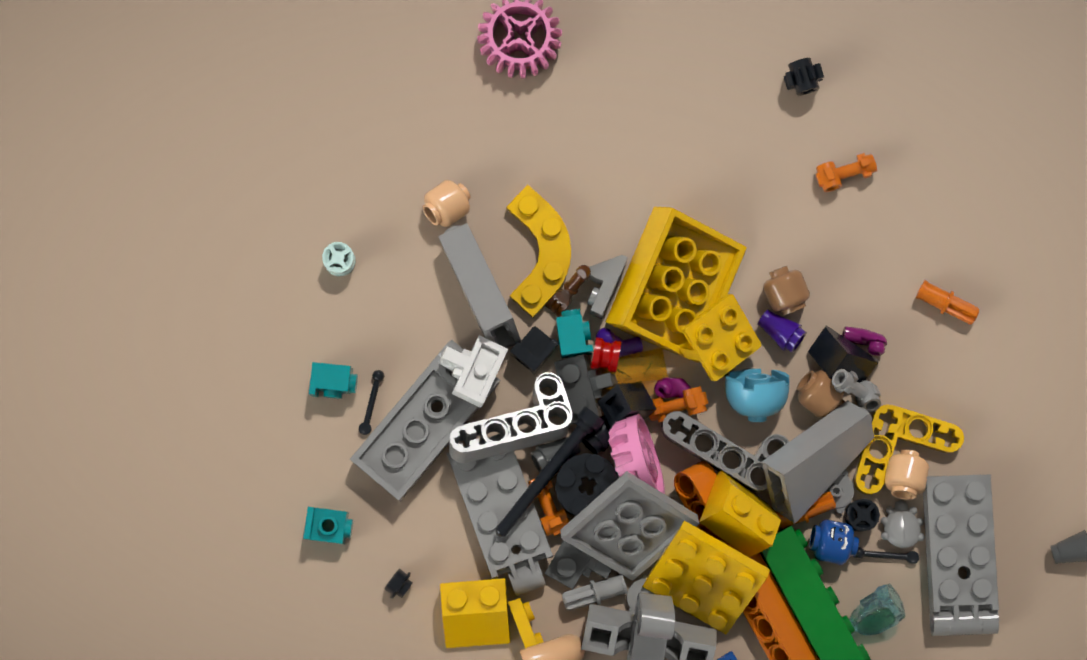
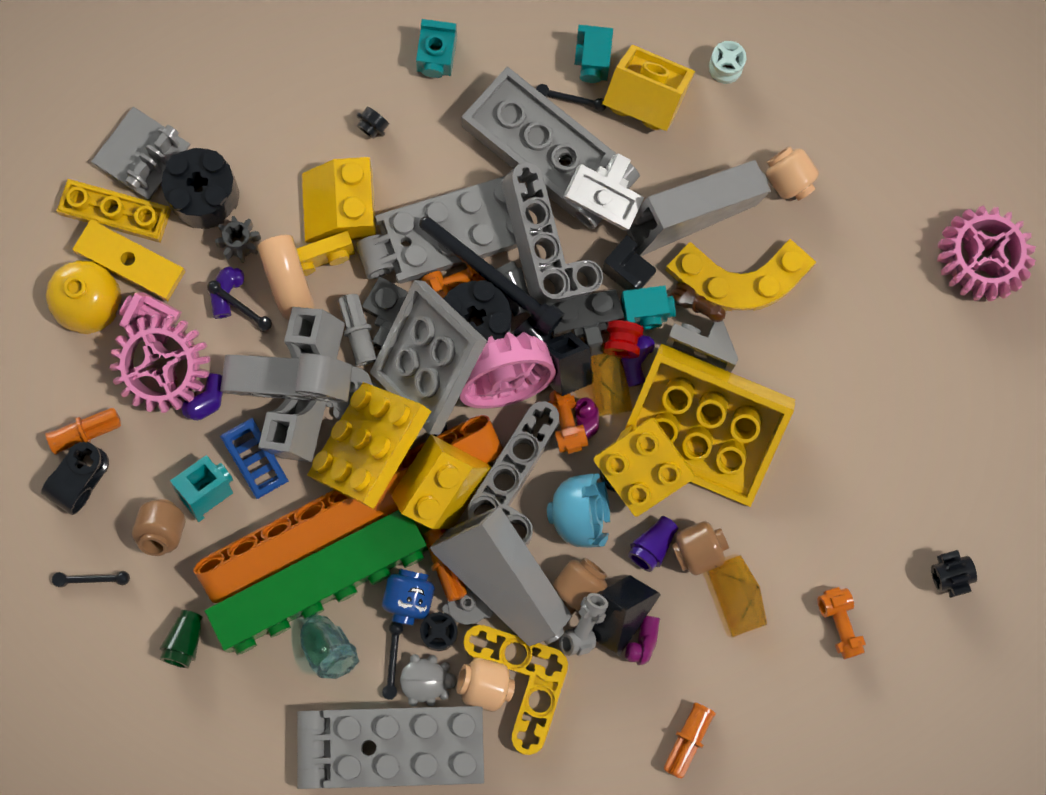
camera: 85 degrees right, 5 degrees down
(364, 330) = (648, 88): none -> yellow slope
(824, 258) = (738, 596): none -> clear yellow slope

